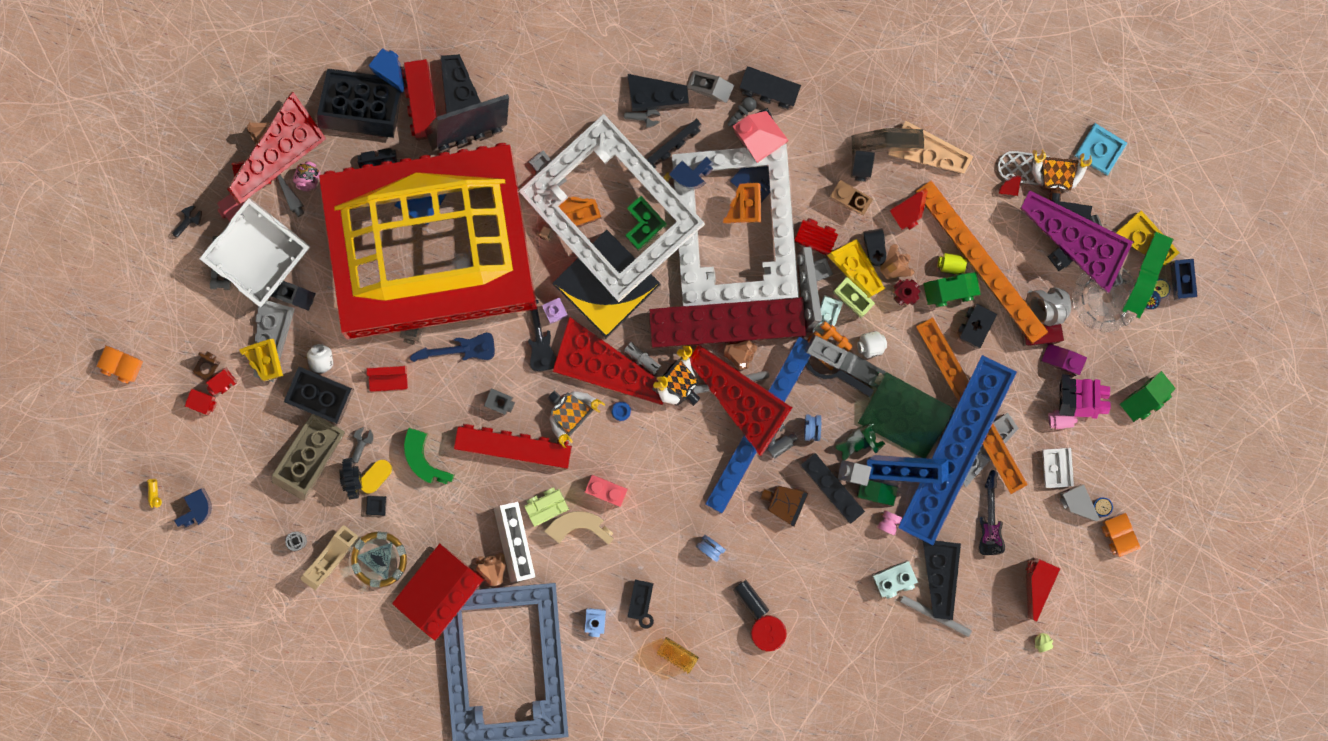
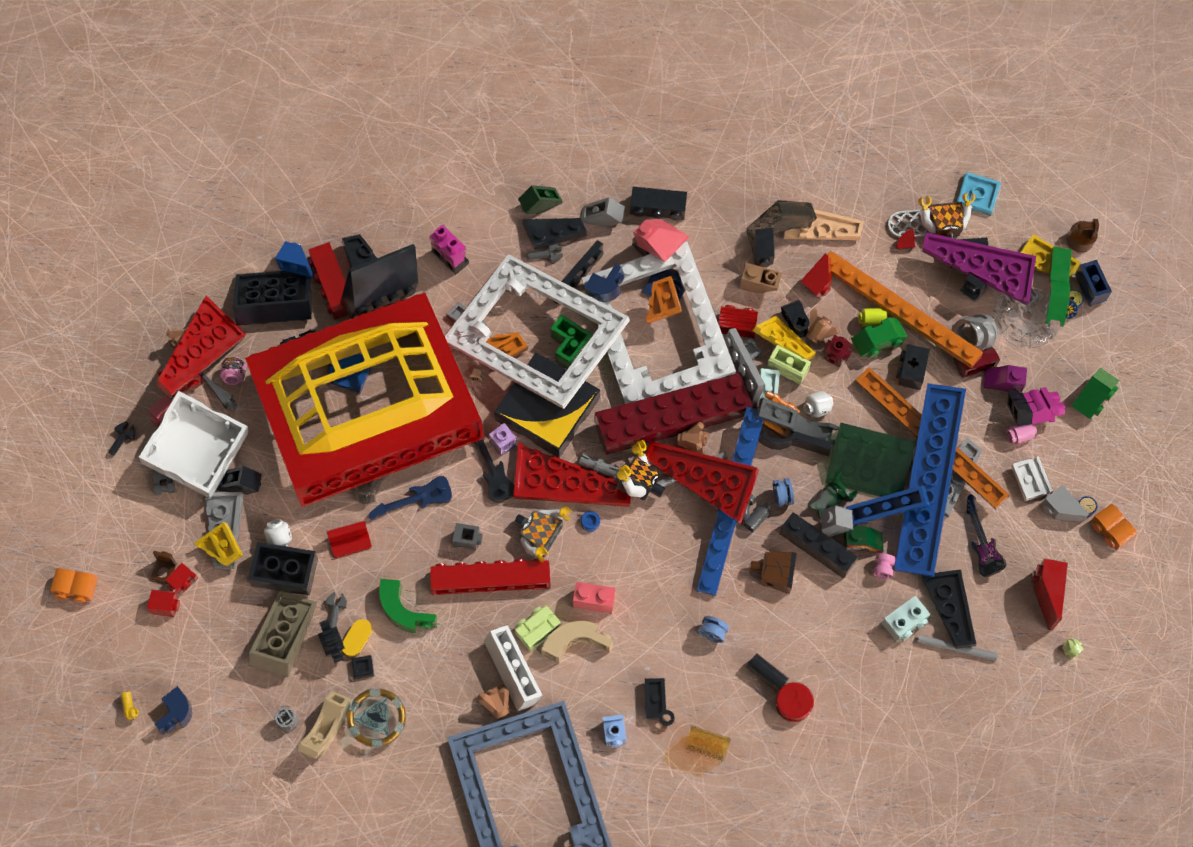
camera: 10 degrees left, 20 degrees down
(437, 591) = (445, 735): red slope -> none
(545, 95) = (449, 249): none -> dark pink hips
(650, 56) = (539, 199): none -> dark green slope
(747, 105) = (639, 220): dark grey bar -> none
(1190, 223) = (1083, 235): none -> reddish brown piece

